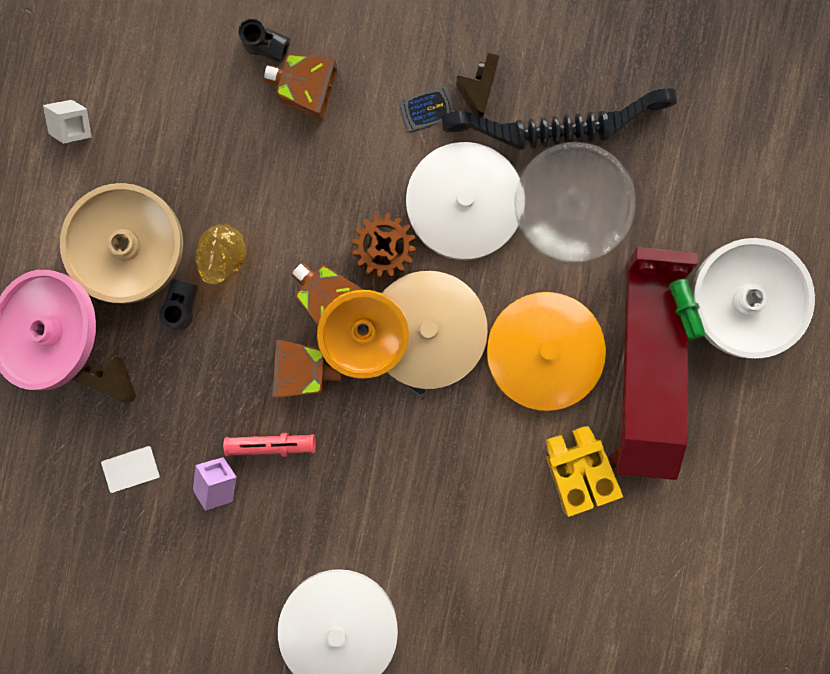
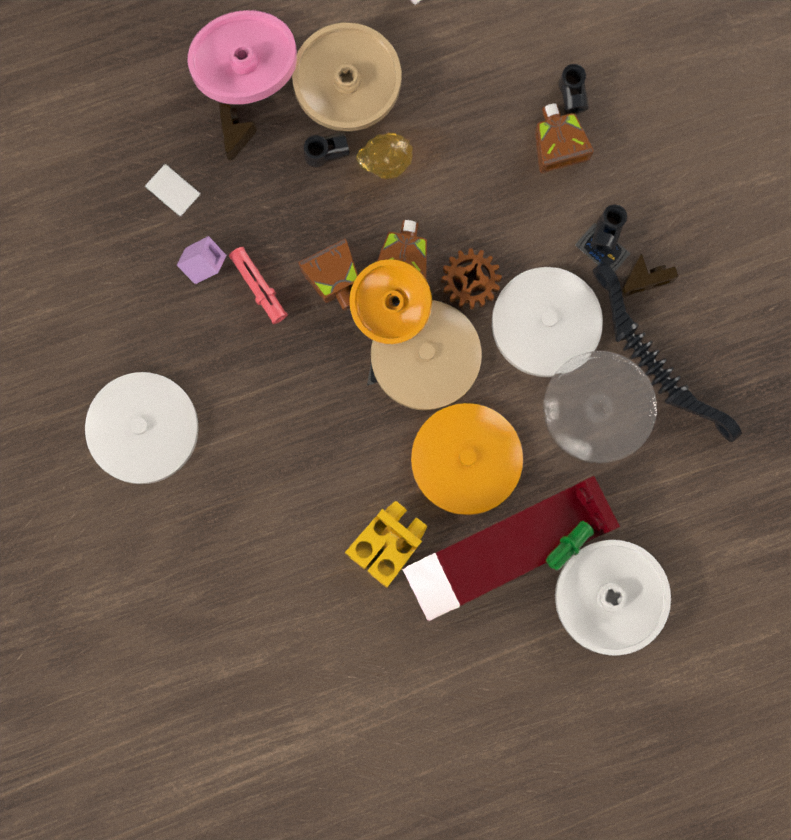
camera: 55 degrees right, 5 degrees down
(419, 96) = (607, 234): none -> black piece

